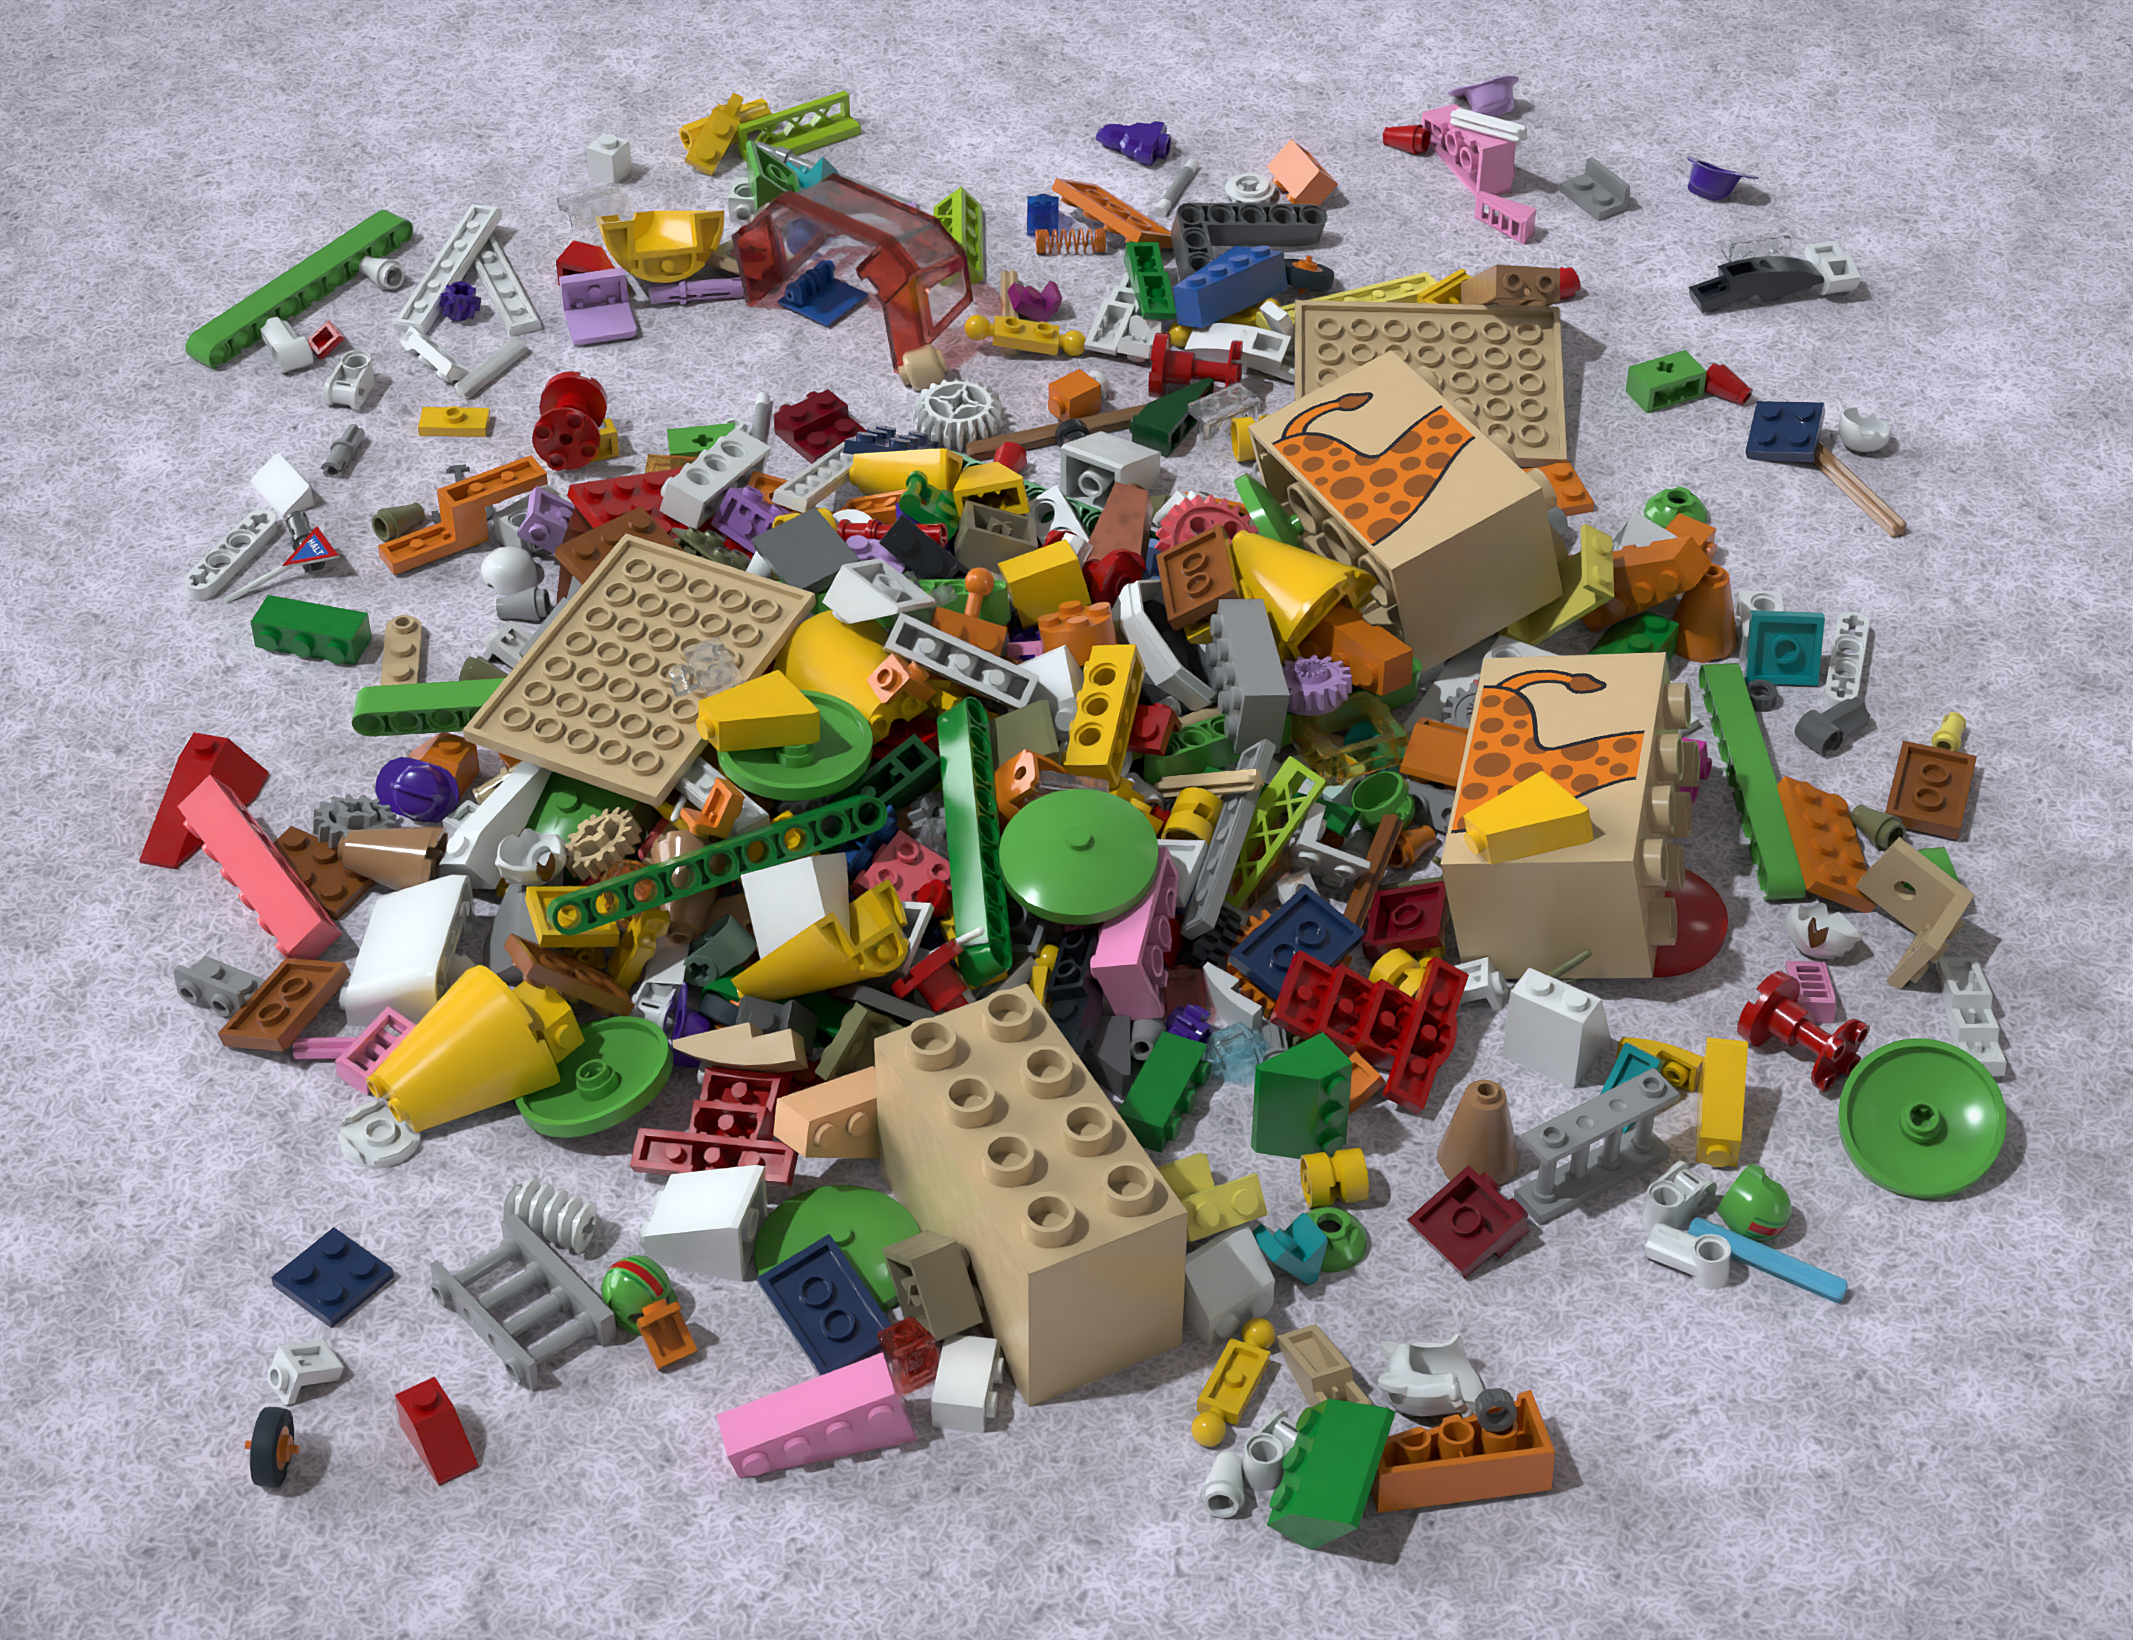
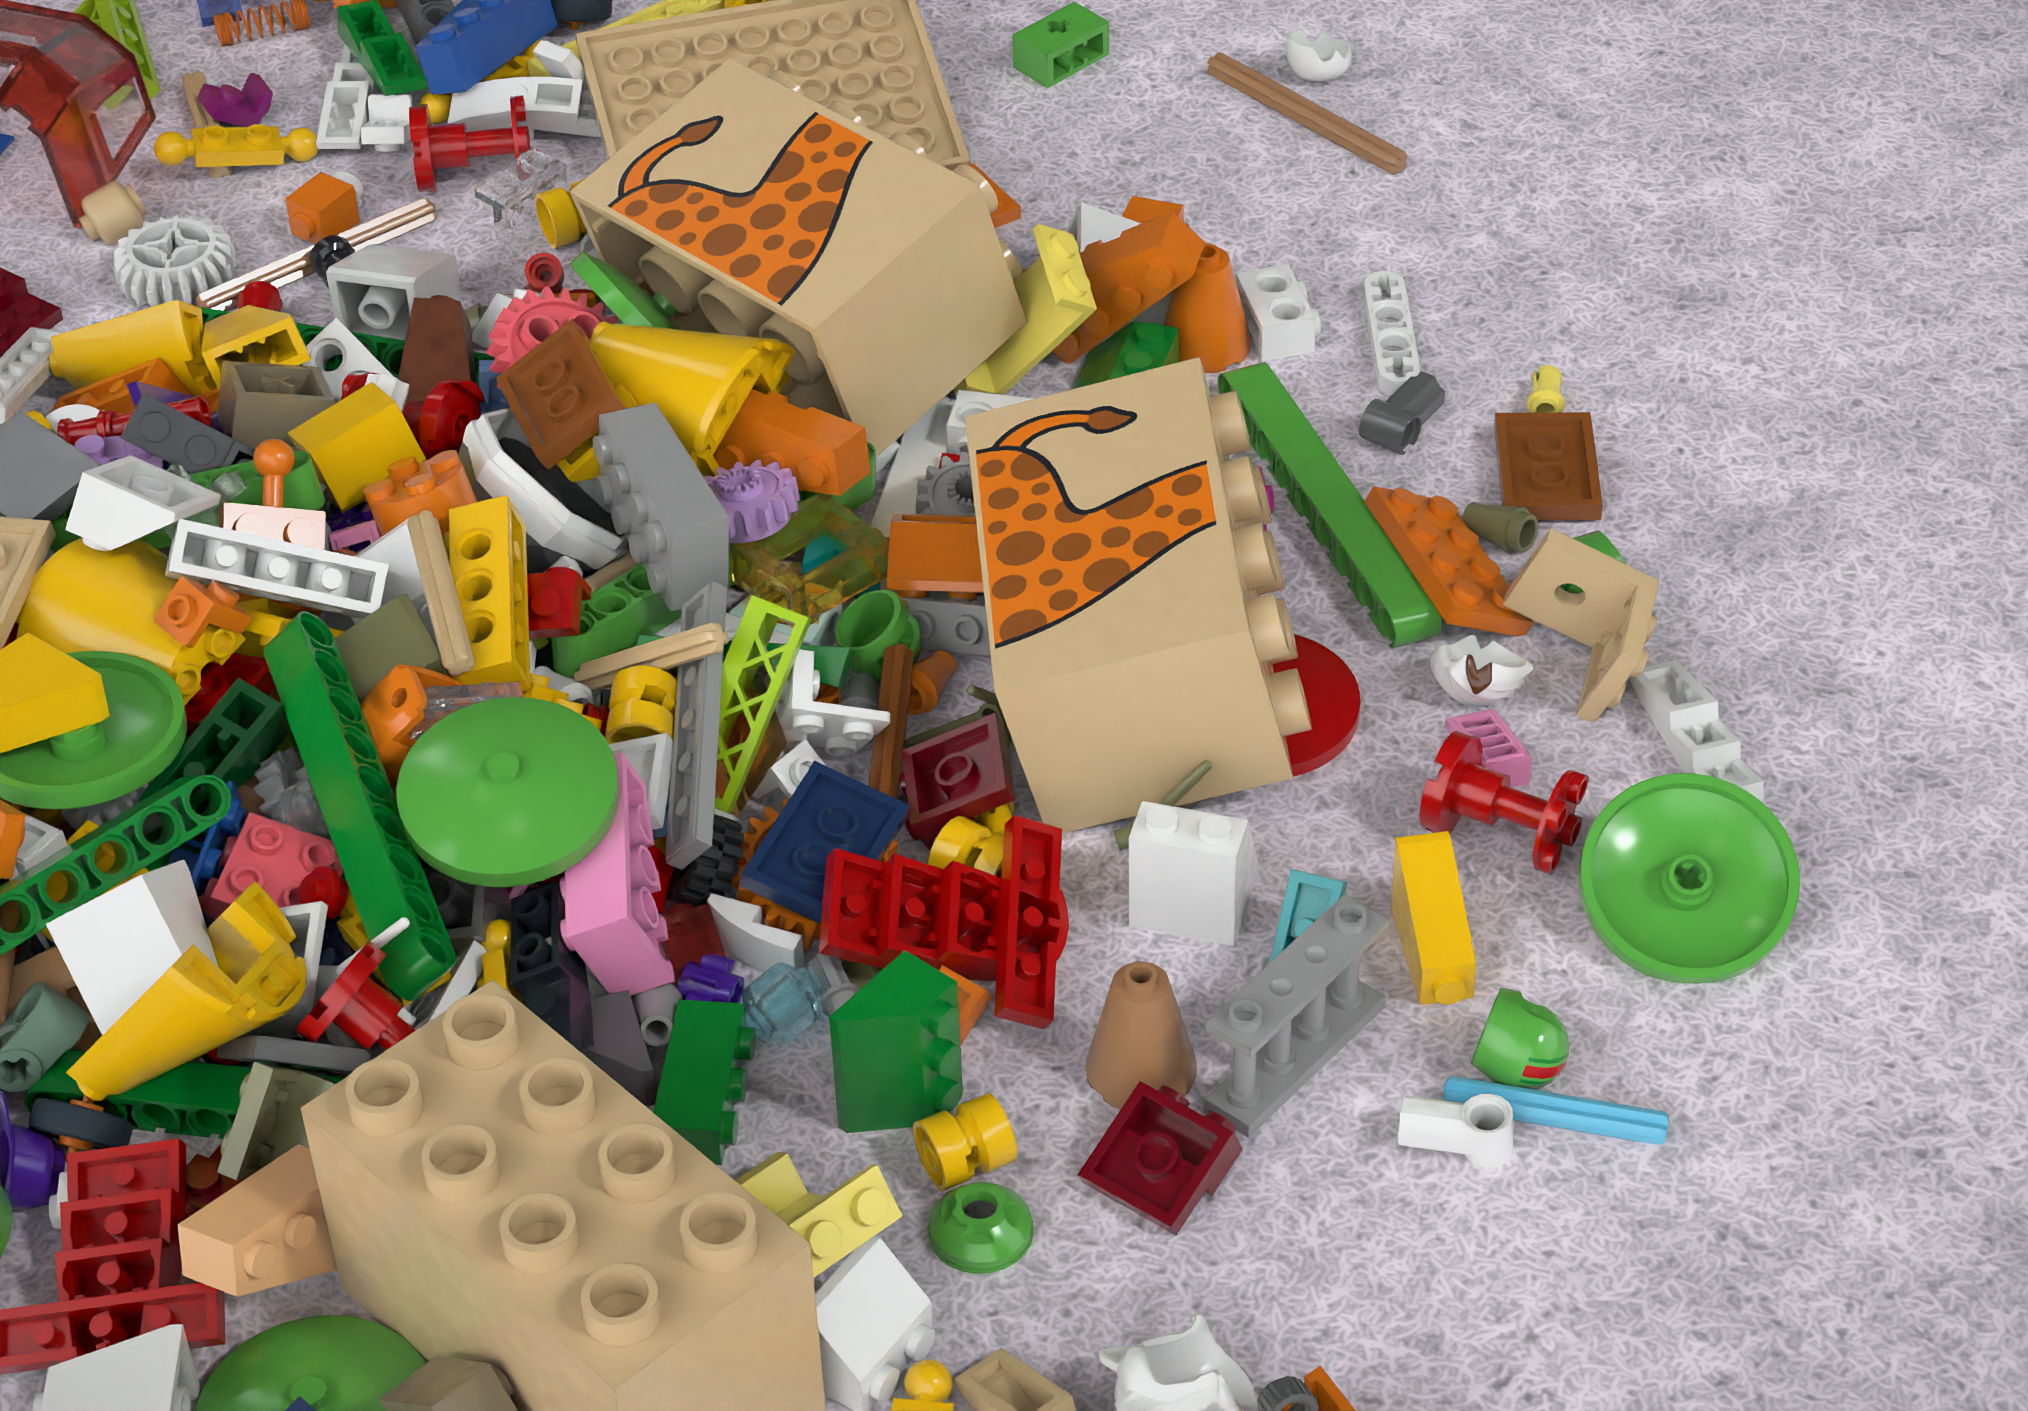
camera: 15 degrees left, 0 degrees up
(746, 1049) = (112, 1164): tan slope -> none
(776, 1017) = (144, 1116): dark grey slope -> none
(886, 440) = (86, 311): dark blue plate -> none
(939, 505) = (184, 376): green plate -> none
(1070, 704) = (440, 593): none -> tan axle
(1166, 420) = (450, 213): dark green slope -> none
(1219, 484) = (545, 271): none -> red plant
(1296, 1249) = (948, 1251): teal slope -> none
(1483, 983) = (1079, 834): white bracket -> none
(1527, 821) = (1096, 609): yellow slope -> none
(1662, 511) = (1114, 198): bright green piece -> none
(1676, 1197) = (1414, 1057): white piece -> none
(1680, 1066) = (1366, 880): yellow slope -> none
(1726, 384) = (1135, 34): red cone -> none
(1756, 691) = (1308, 387): dark grey axle -> none
(1784, 647) = (1316, 330): teal plate -> none
(1785, 431) = (1225, 74): dark blue plate -> none

